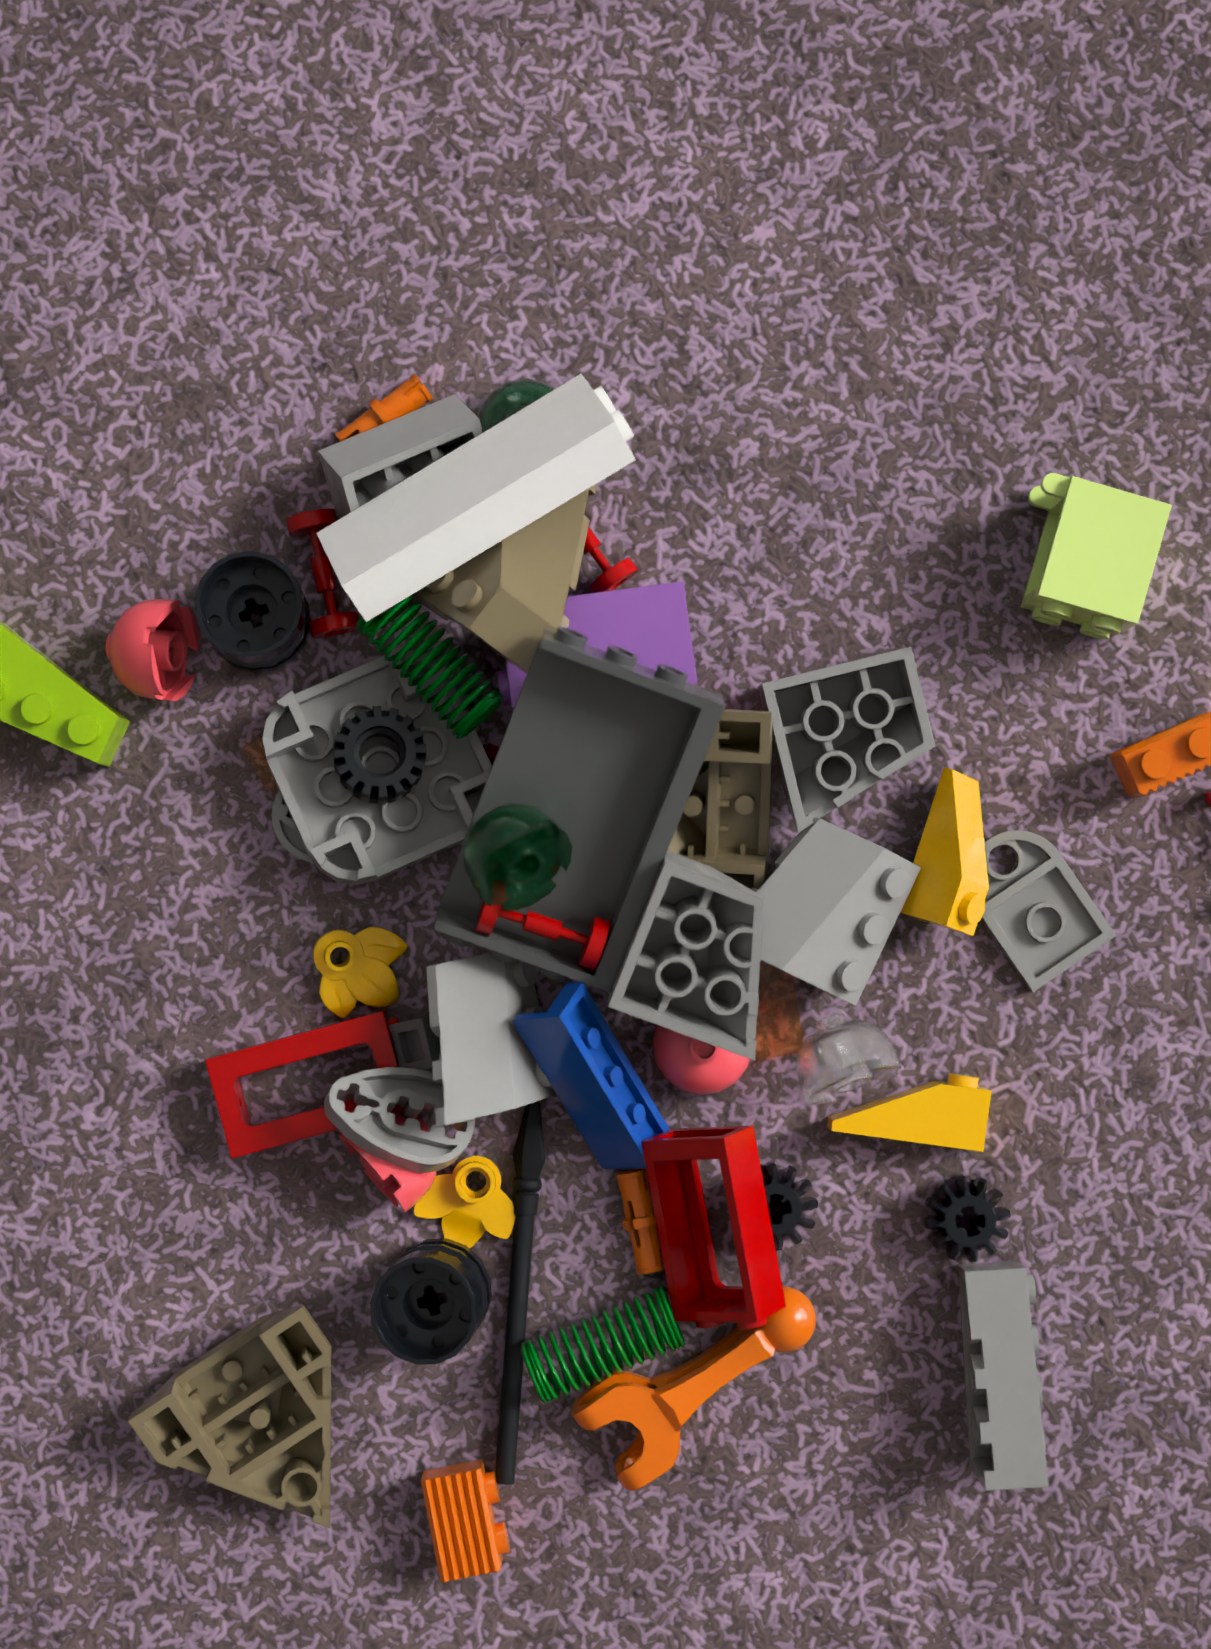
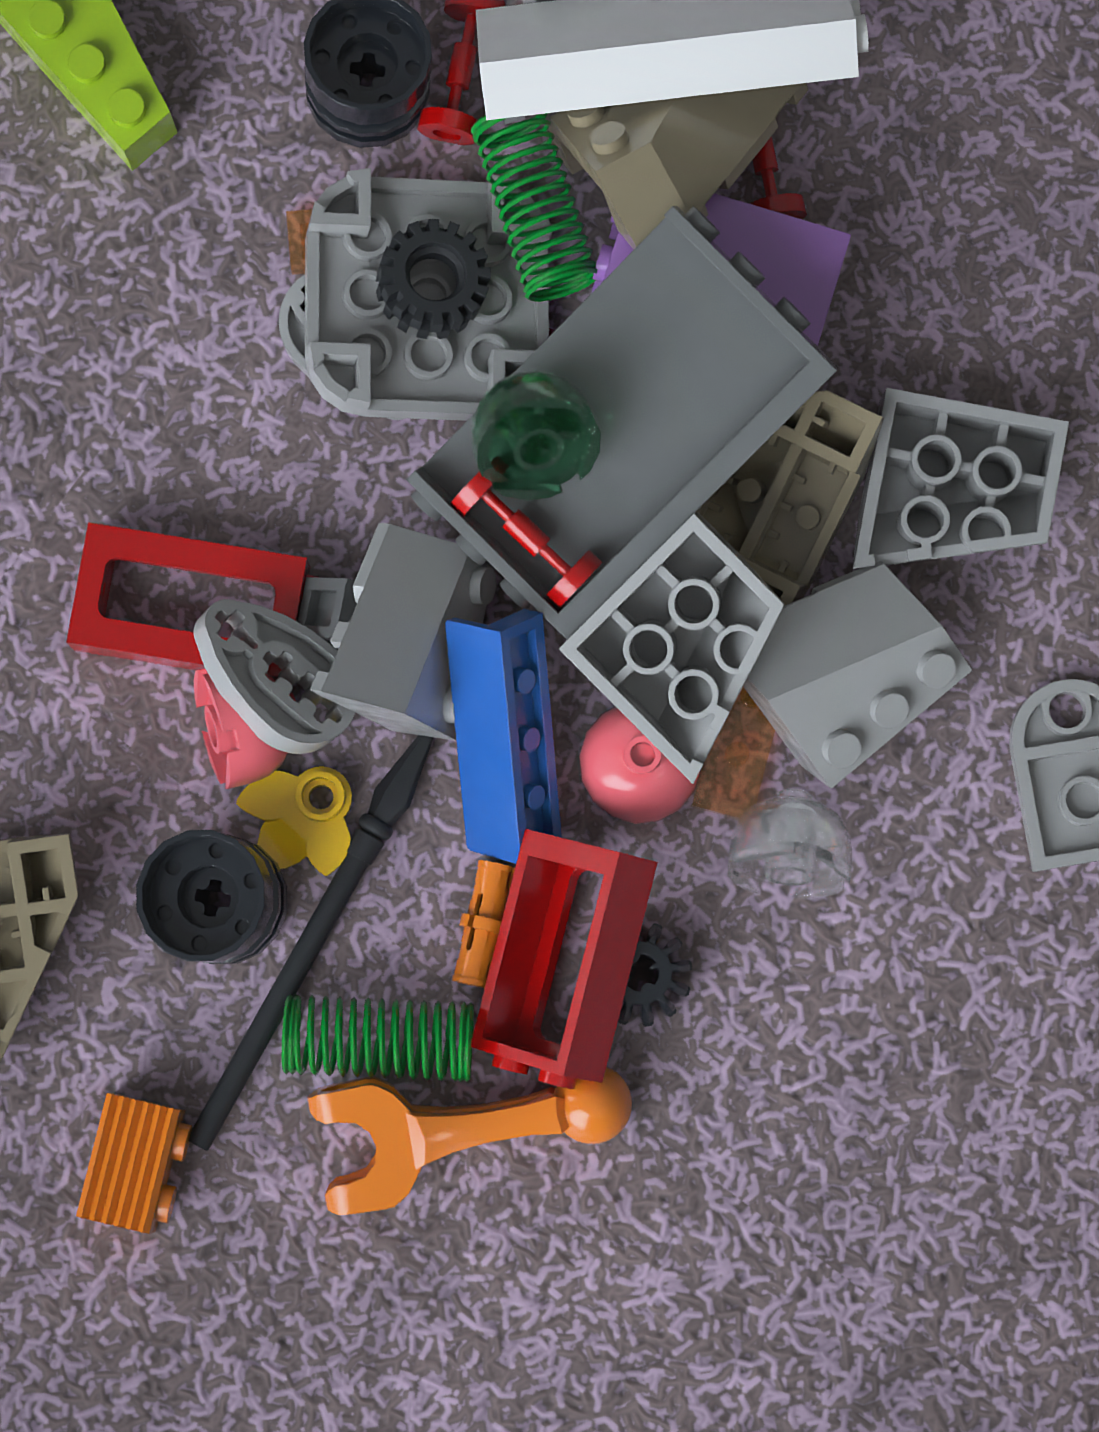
camera: 25 degrees right, 5 degrees down
(151, 649) = (240, 50): coral cylinder -> none
(363, 974) = (304, 515): yellow plate -> none
(930, 1114) = (861, 952): yellow slope -> none
(951, 858) = (1010, 680): yellow slope -> none
(978, 1202) = (830, 1096): black gear -> none
(1002, 1376) = (810, 1274): light grey wedge -> none

